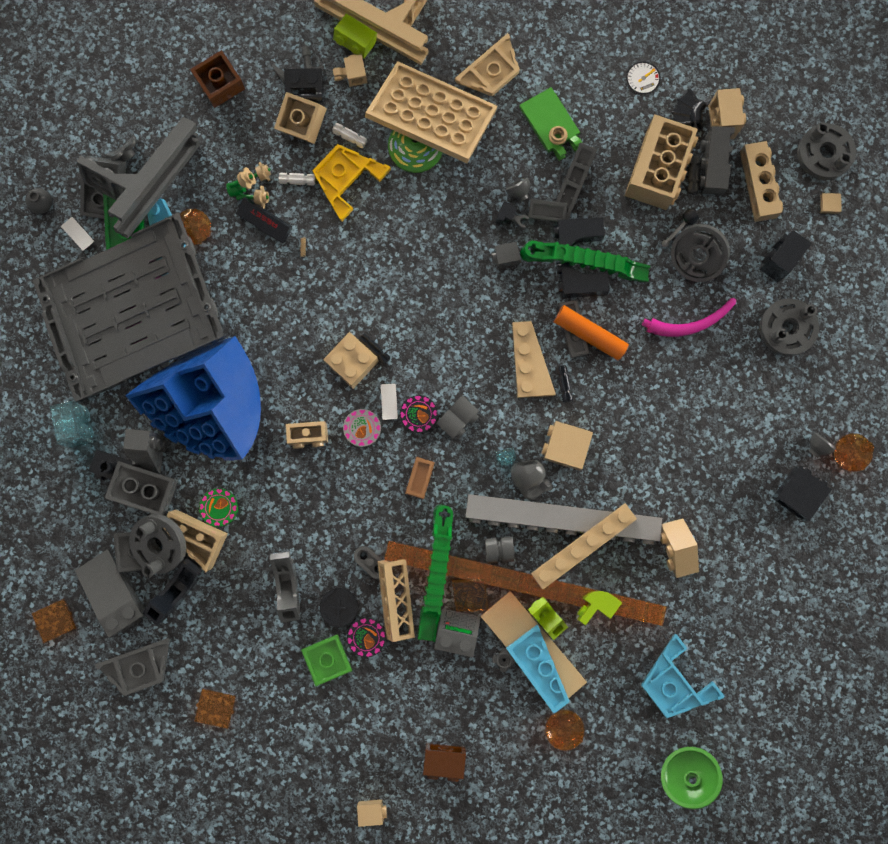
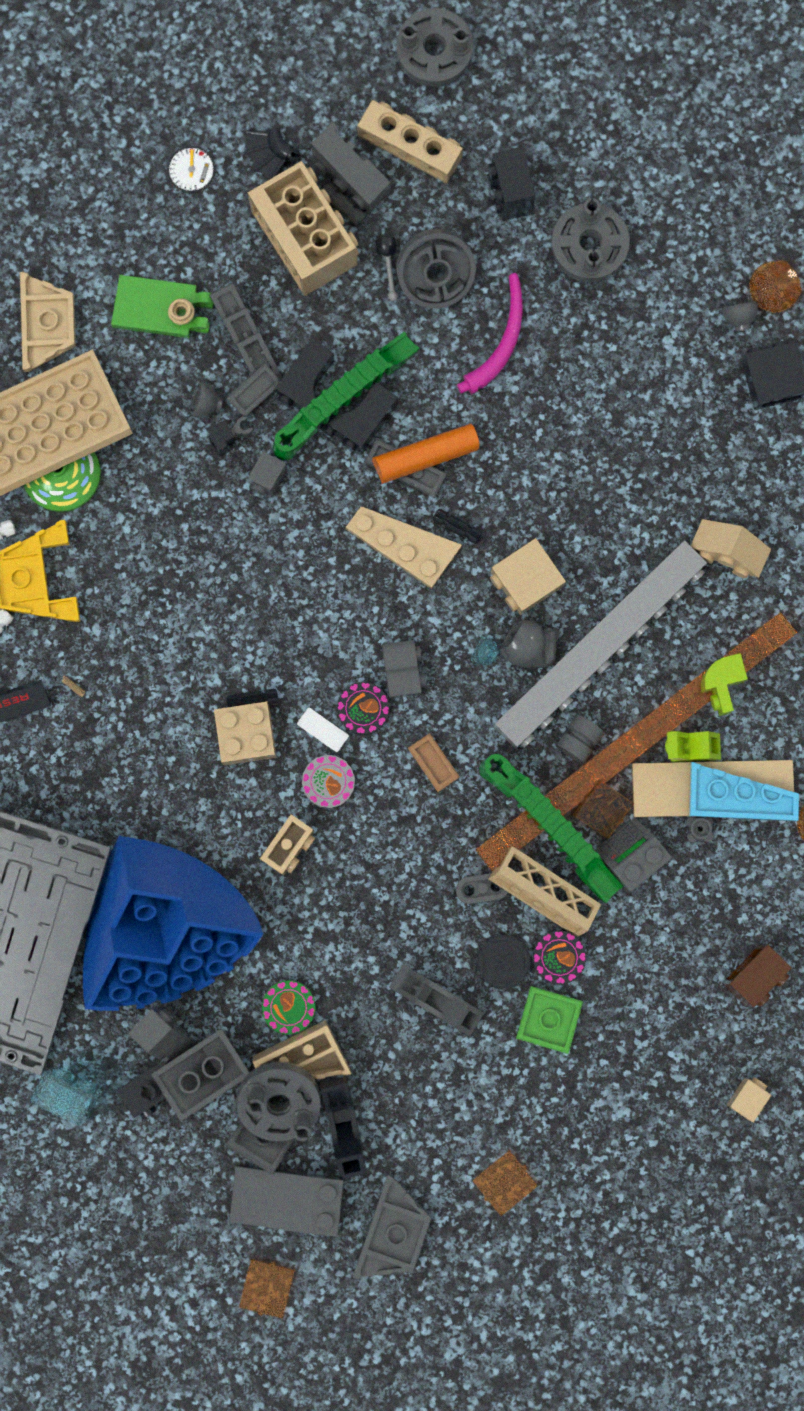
camera: 50 degrees left, 0 degrees up
(583, 546) = (648, 646): tan plate -> none
(727, 110) = (305, 113): tan brick -> none
(830, 203) = (493, 89): tan tile -> none

